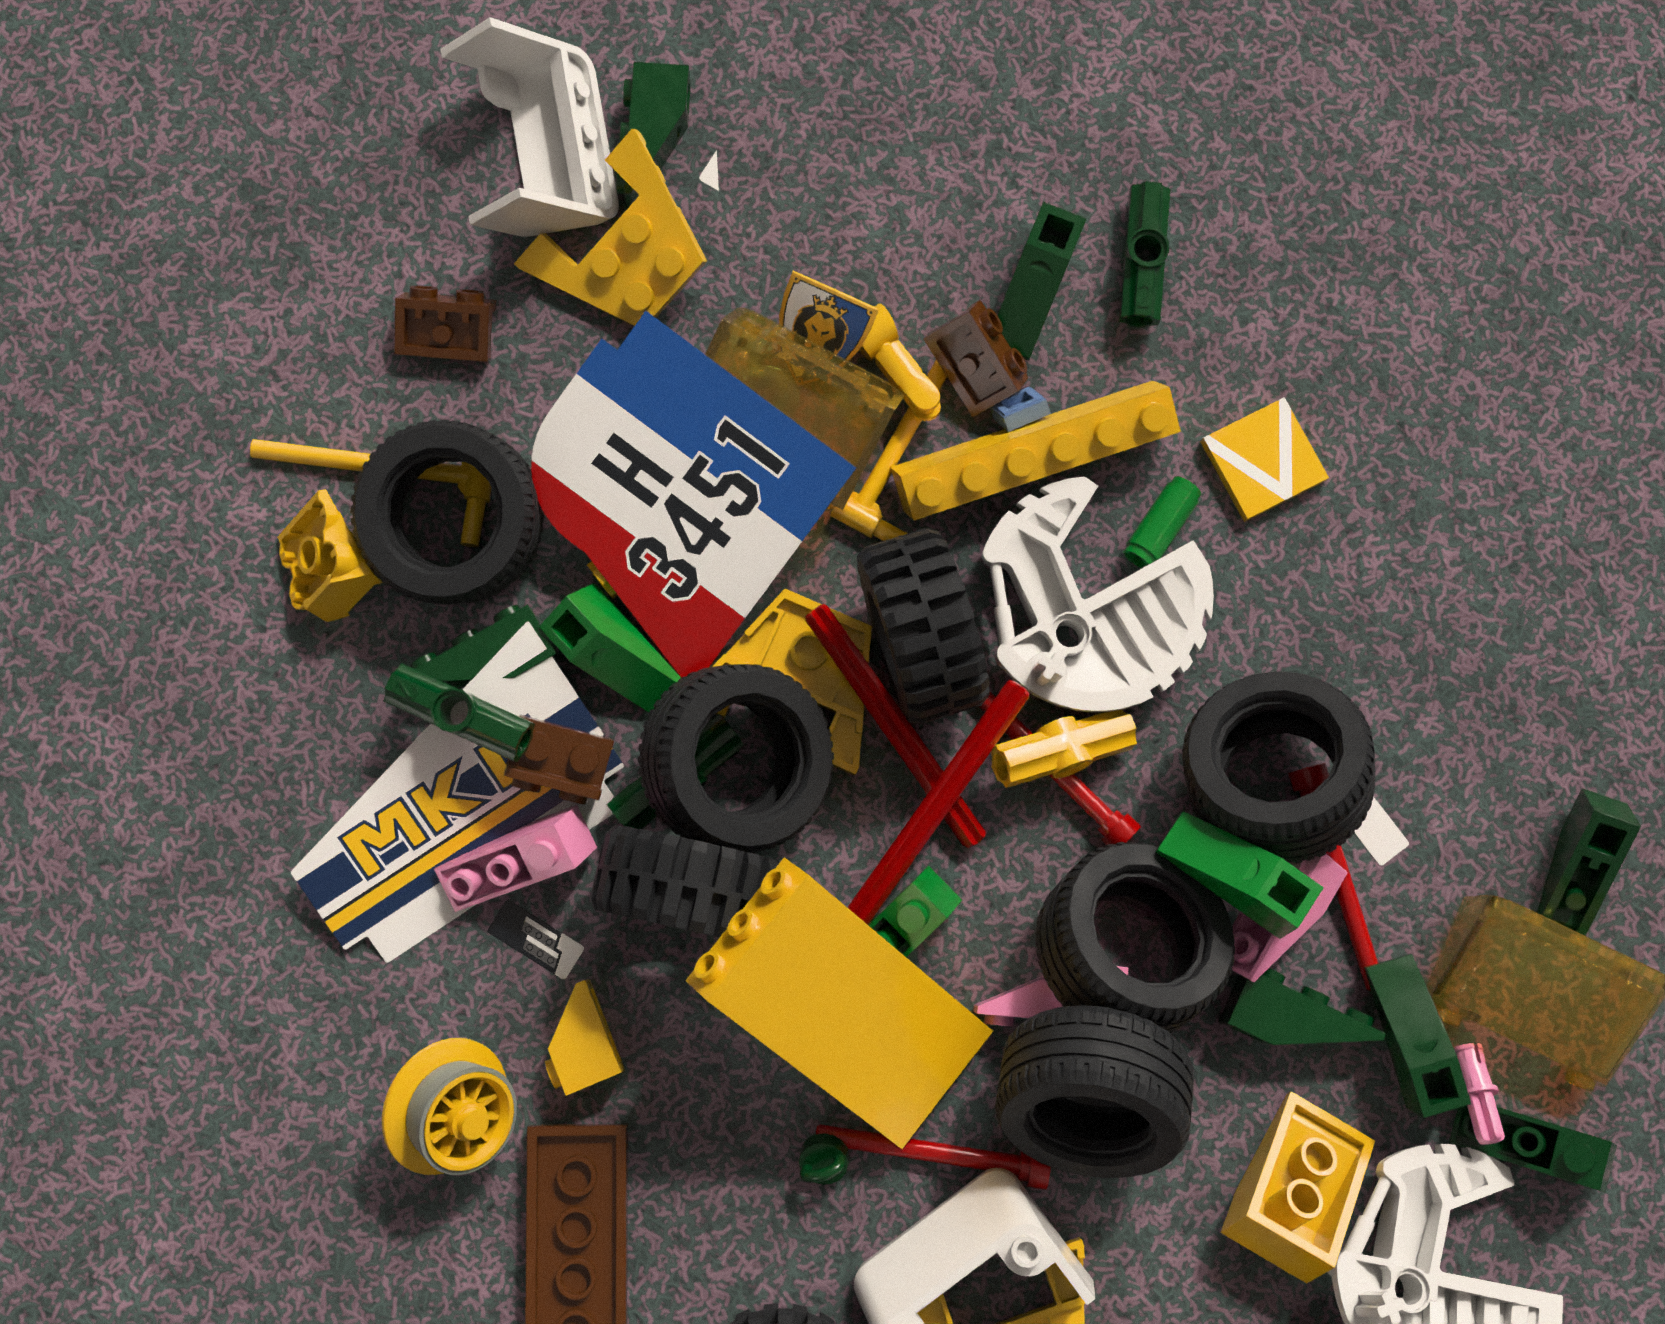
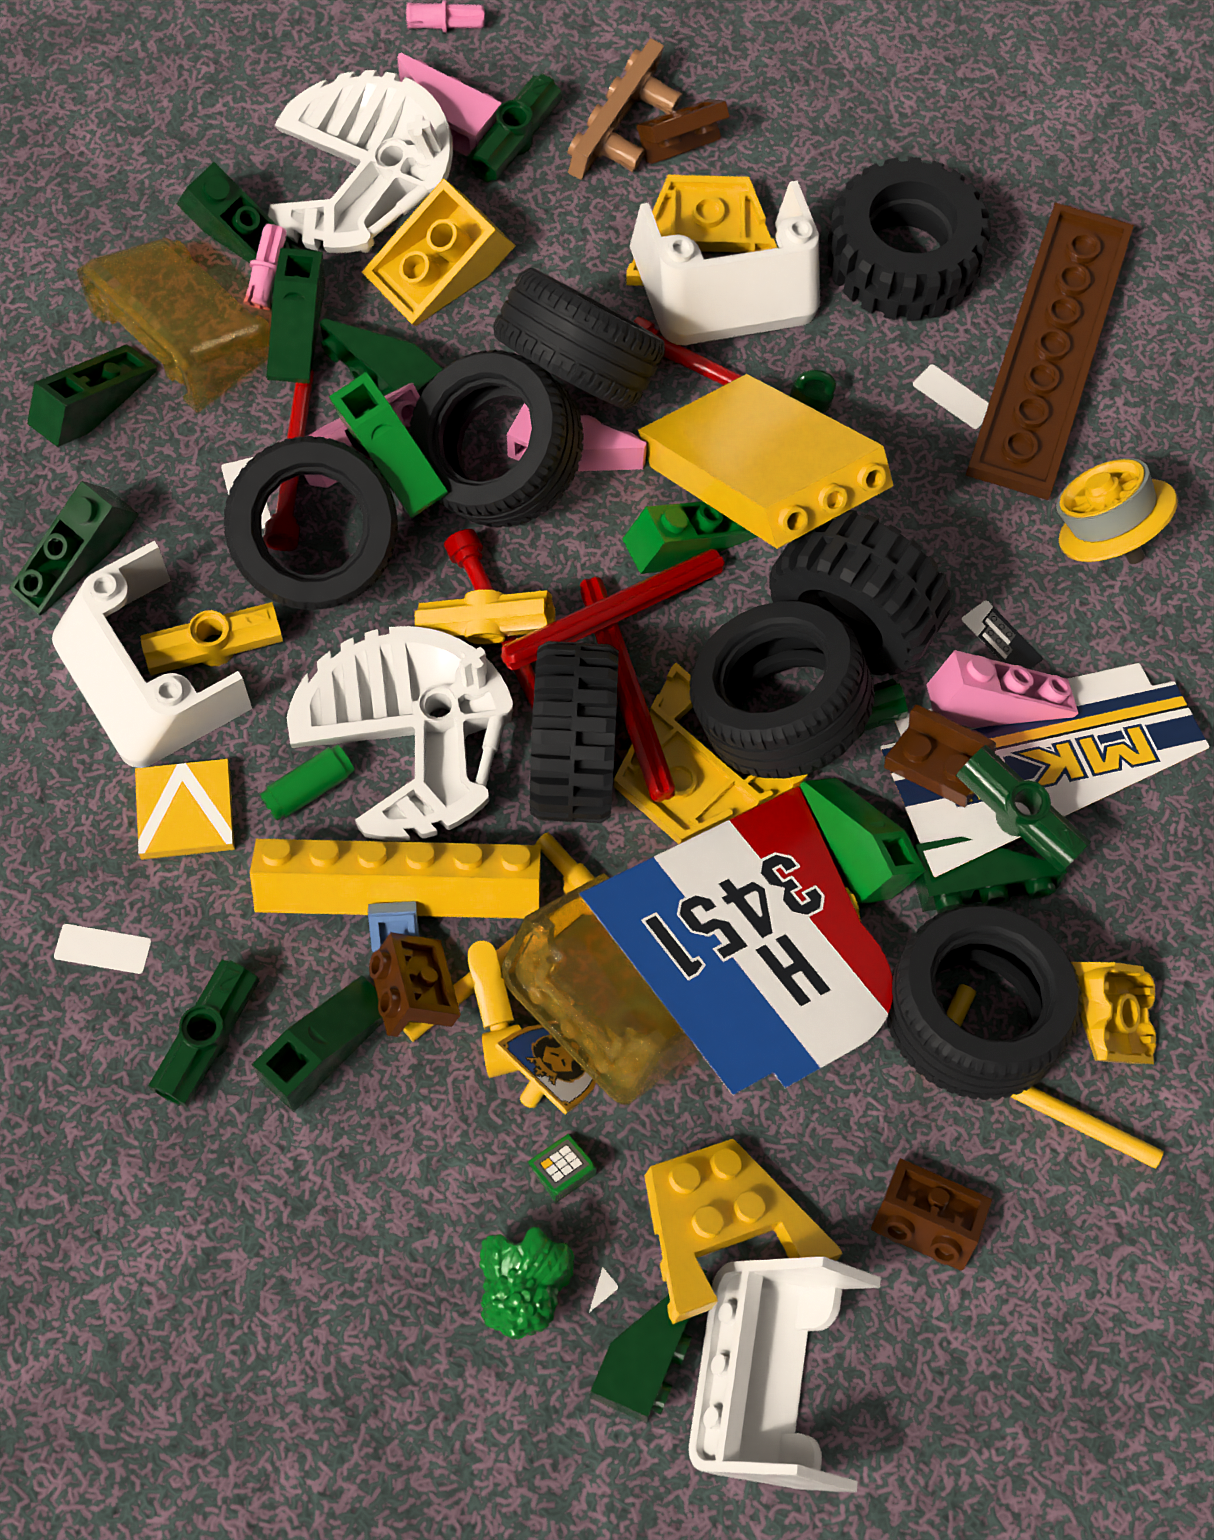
camera: 155 degrees left, 15 degrees down
(582, 1044) = (985, 535): yellow slope -> none
(671, 1228) = (952, 395): none -> white sticker
(778, 138) = (523, 1282): none -> green hair
(782, 252) = (562, 1168): none -> slope
(1273, 308) = (102, 948): none -> white sticker
(1342, 616) = (185, 643): none -> yellow piece
(1348, 519) = (138, 716): none -> white windscreen
(1507, 687) = (73, 545): none -> dark green slope

